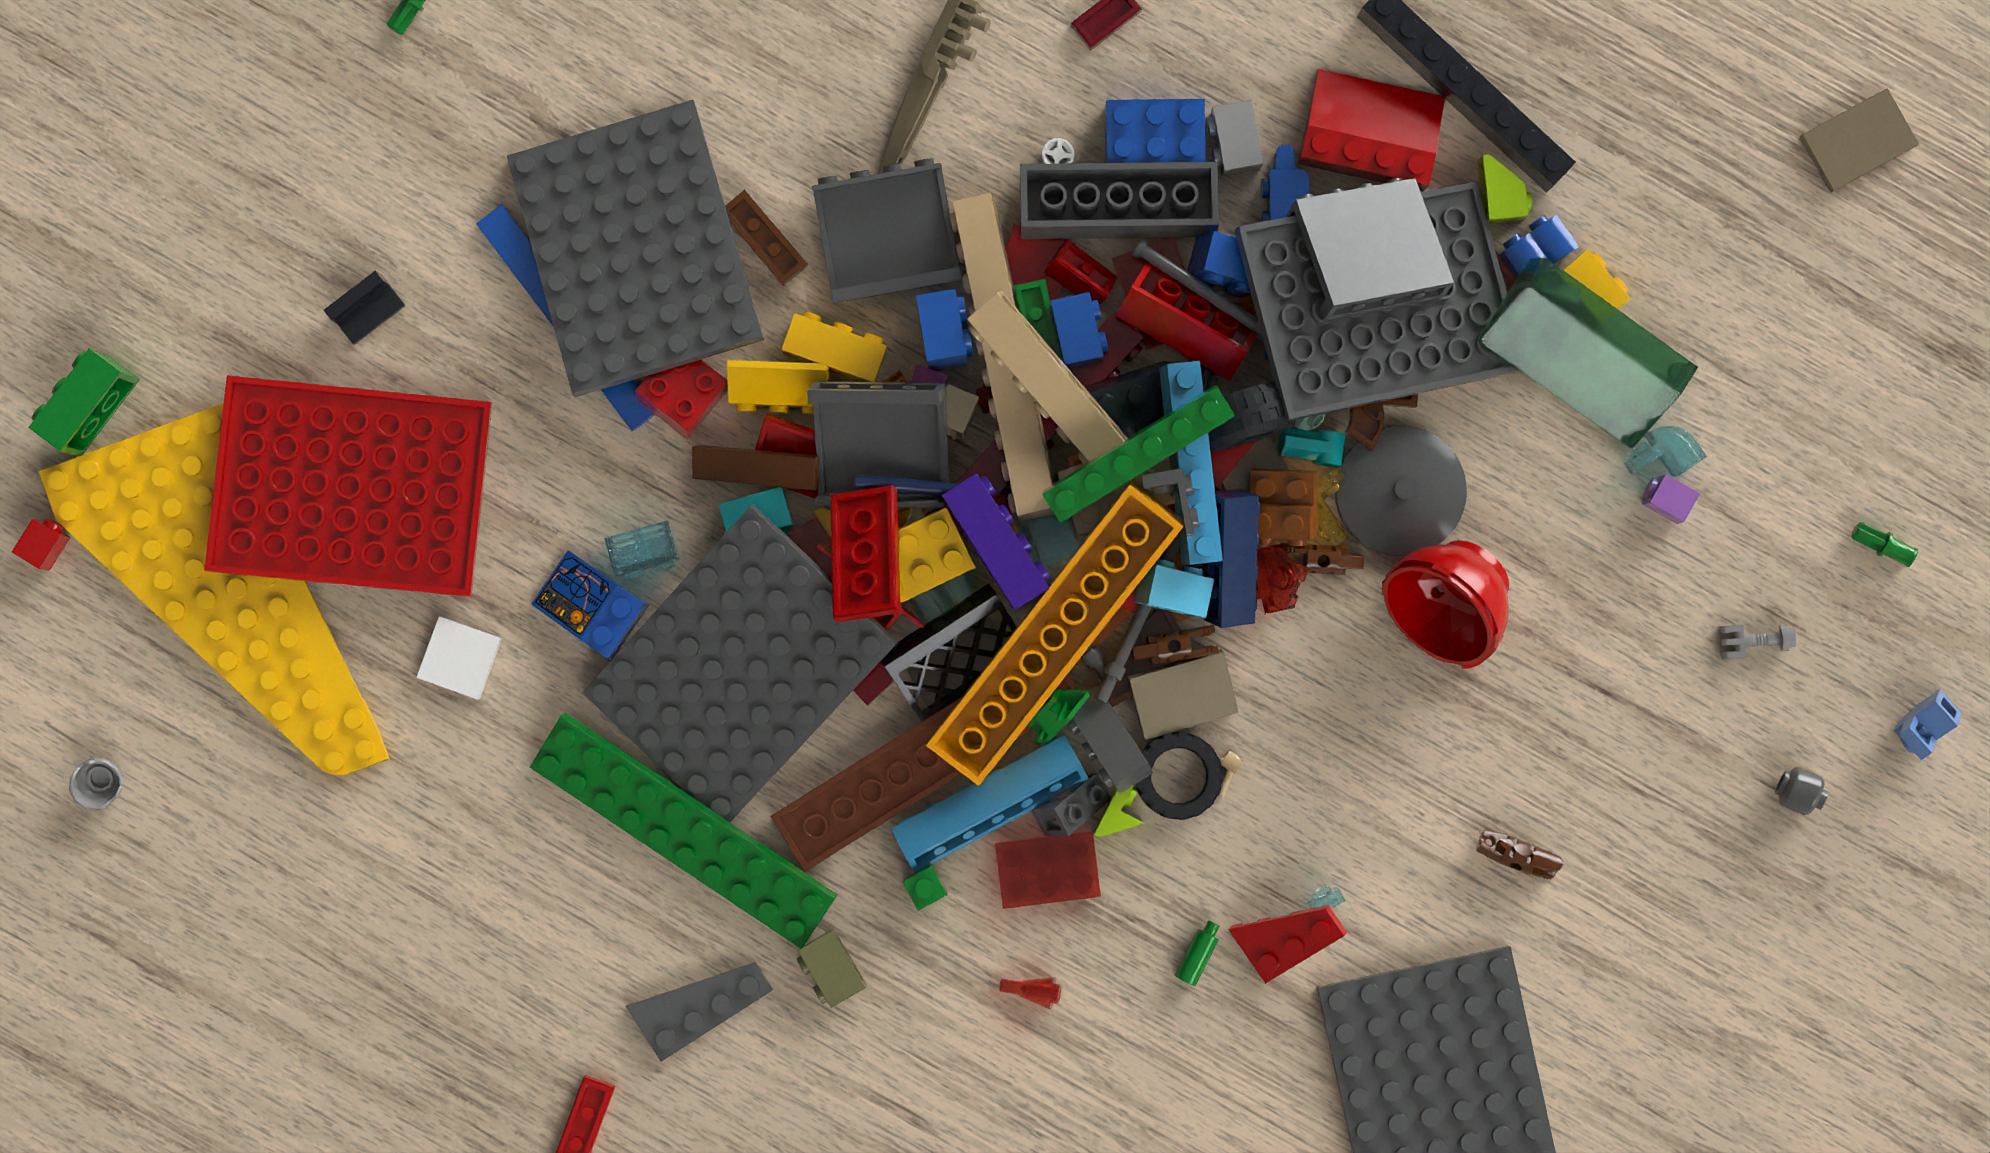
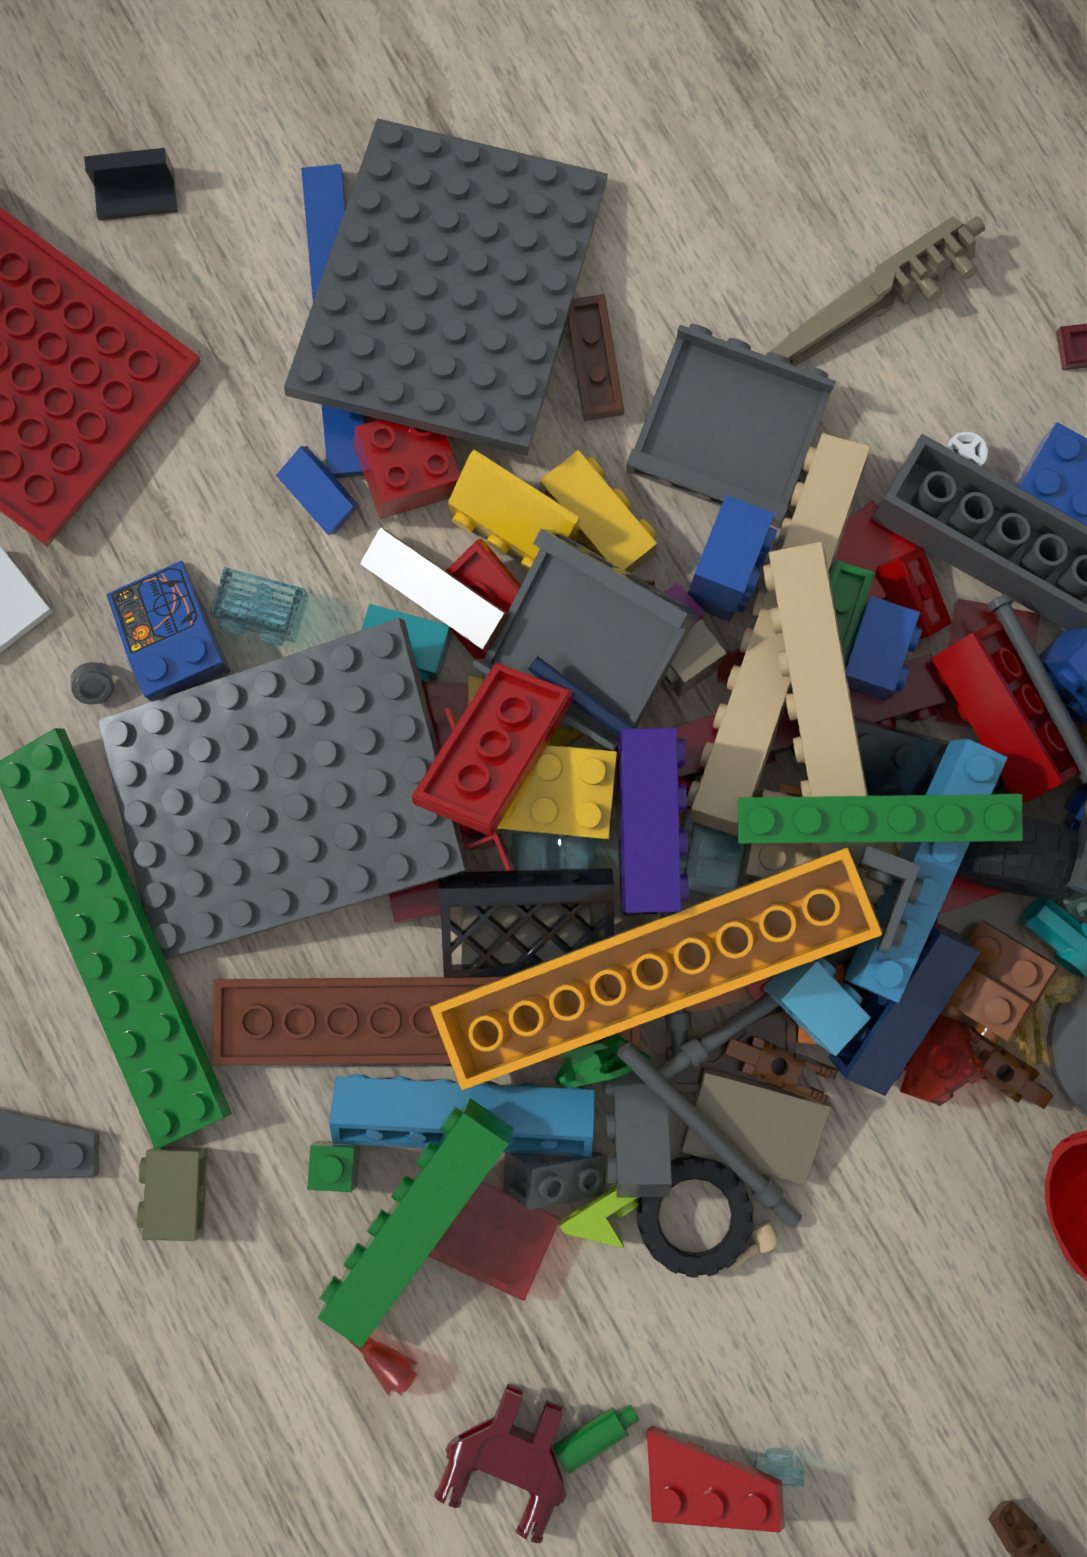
camera: 35 degrees right, 5 degrees down
(562, 670) = (91, 683): none -> flat silver tile
(631, 445) = (317, 490): none -> blue tile
(999, 887) = (415, 1222): none -> green brick
(1152, 997) = (512, 1456): none -> dark red connector
(1213, 731) = (763, 1188): none -> dark grey bar

